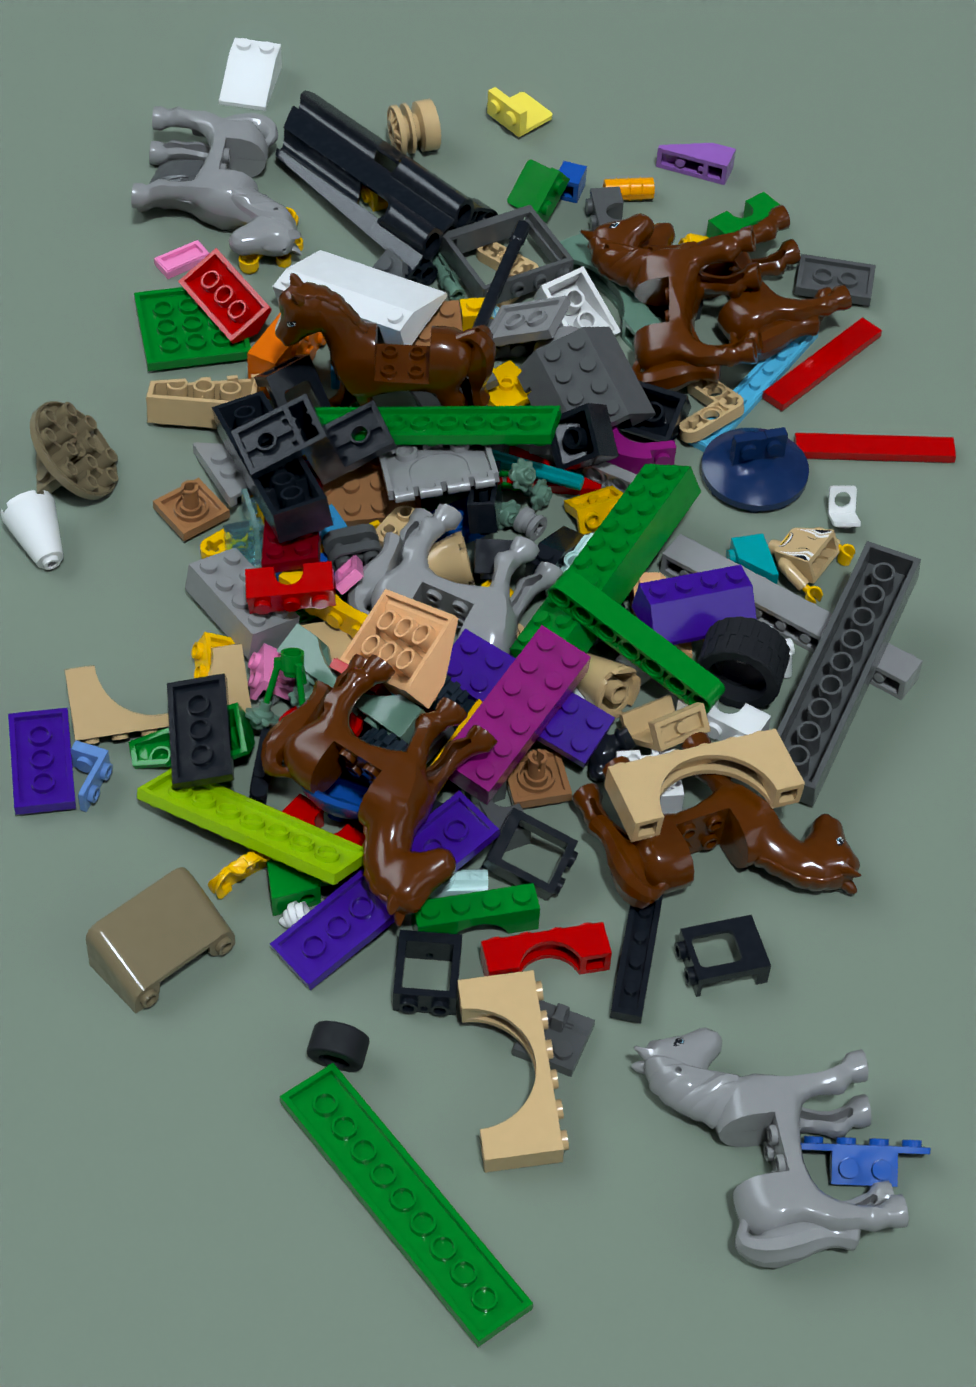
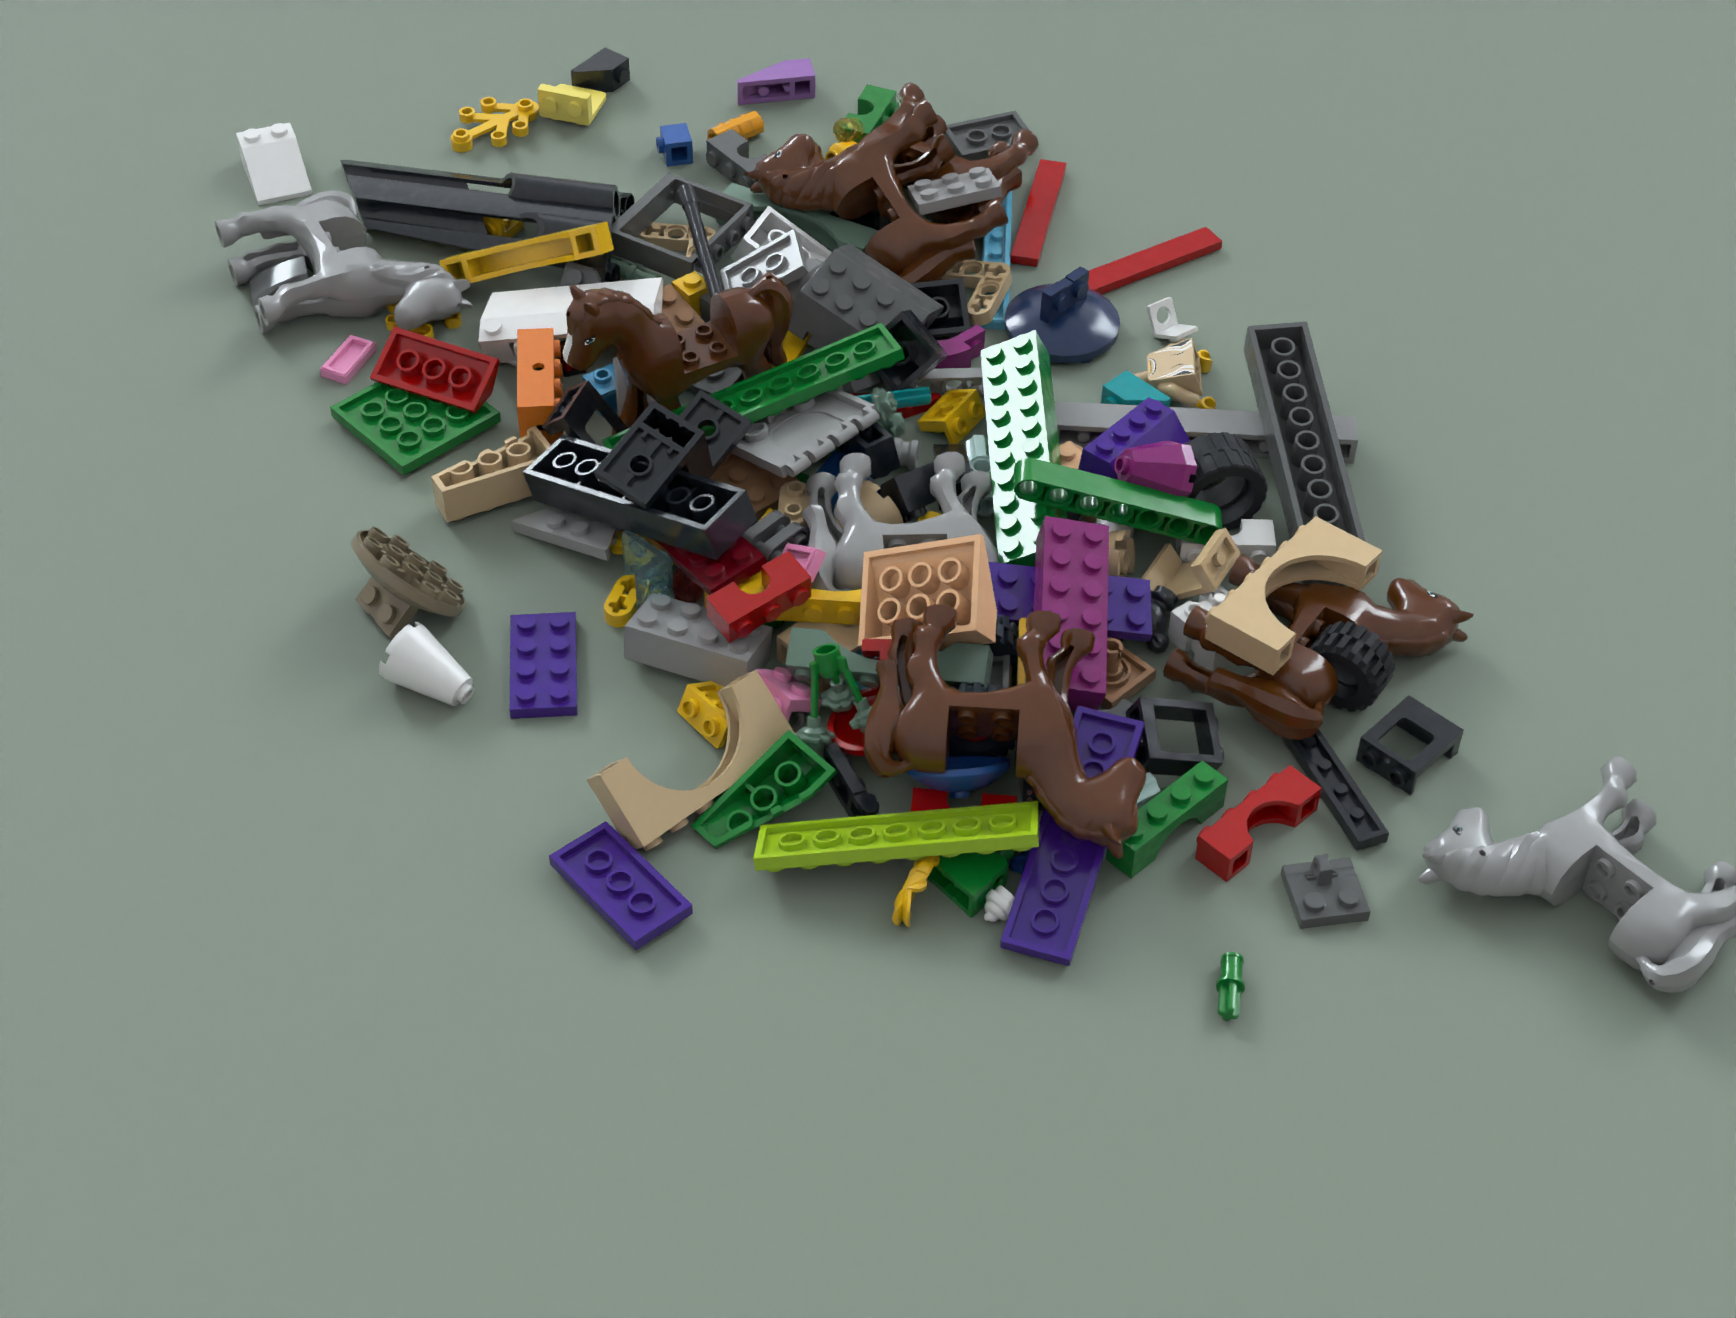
camera: 30 degrees left, 5 degrees down
(97, 762) = (677, 858): medium blue bracket -> none
(126, 566) = (543, 665): none -> dark purple plate
(156, 937) = (894, 993): dark tan windscreen -> none
(191, 509) = (564, 581): medium nougat plate -> none
(200, 731) = (776, 773): black plate -> none
(339, 1045) = (1151, 998): black tyre -> none
(383, 233) = (530, 253): none -> yellow arch
(406, 1205) = (1331, 1109): green plate -> none
(413, 1069) = (1230, 985): none -> green axle
(414, 126) = (489, 147): tan wheel -> none
(428, 947) = (1155, 865): black window -> none
(473, 104) = (524, 111): none -> yellow plant
(534, 1131) = (1287, 877): tan arch -> none
(539, 188) = (653, 157): green bracket -> none
(562, 95) = (602, 71): none -> black slope
(686, 626) = (1158, 466): none -> magenta cone
(708, 225) = (852, 123): none -> clear yellow bush
(720, 866) = (1359, 662): none -> black tyre
(735, 316) = (954, 190): none -> light grey plate
(863, 1163) = (1685, 854): blue bracket -> none

